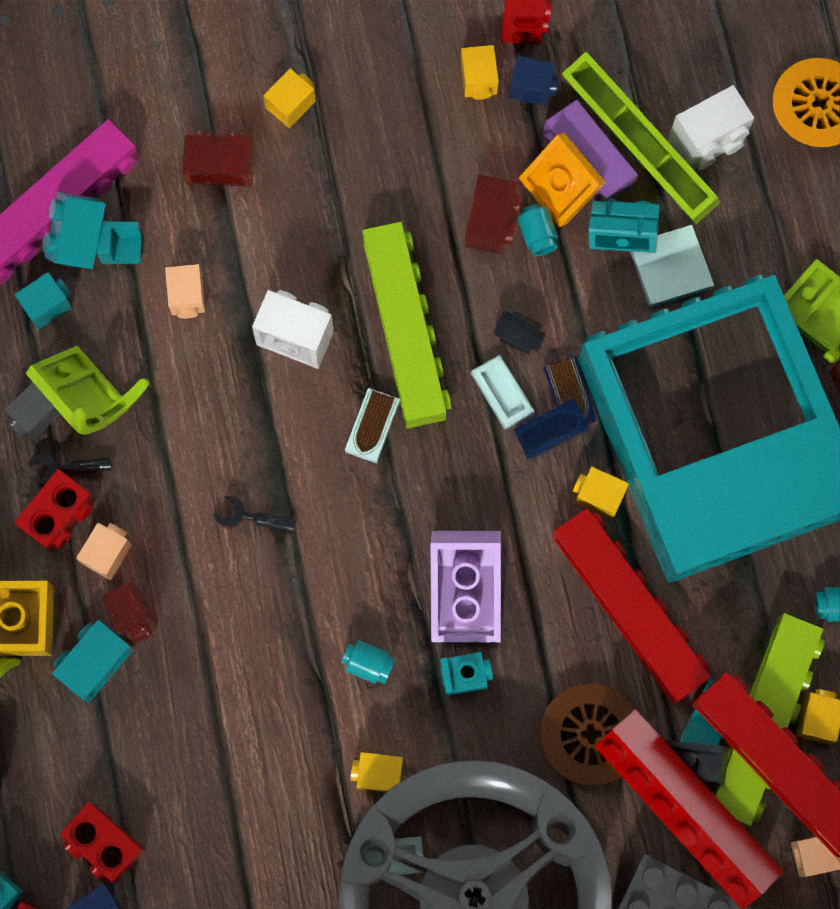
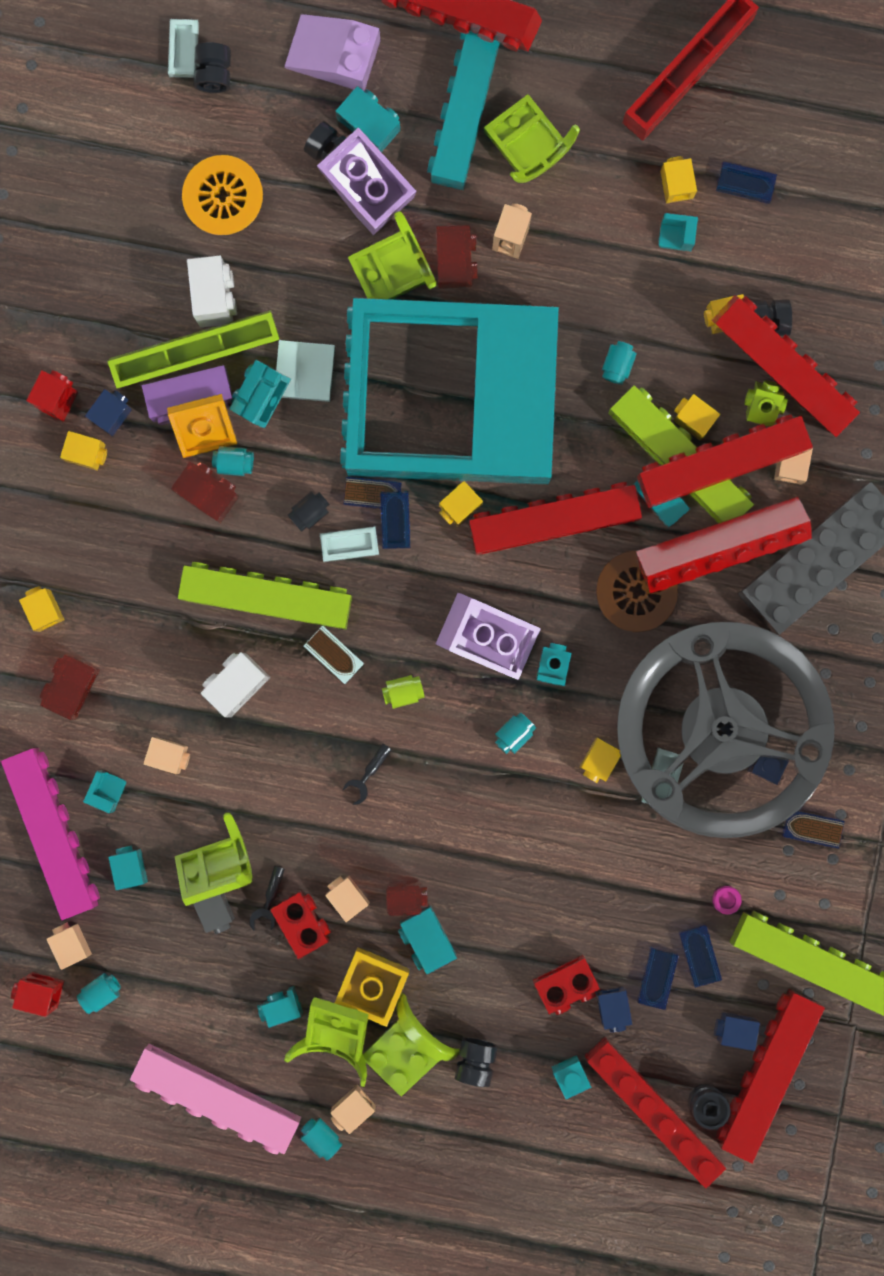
camera: 65 degrees left, 10 degrees up
(73, 230) = (82, 823): teal brick -> none
(363, 517) = (403, 691): none -> lime brick
(704, 760) = (693, 517): black plate -> none

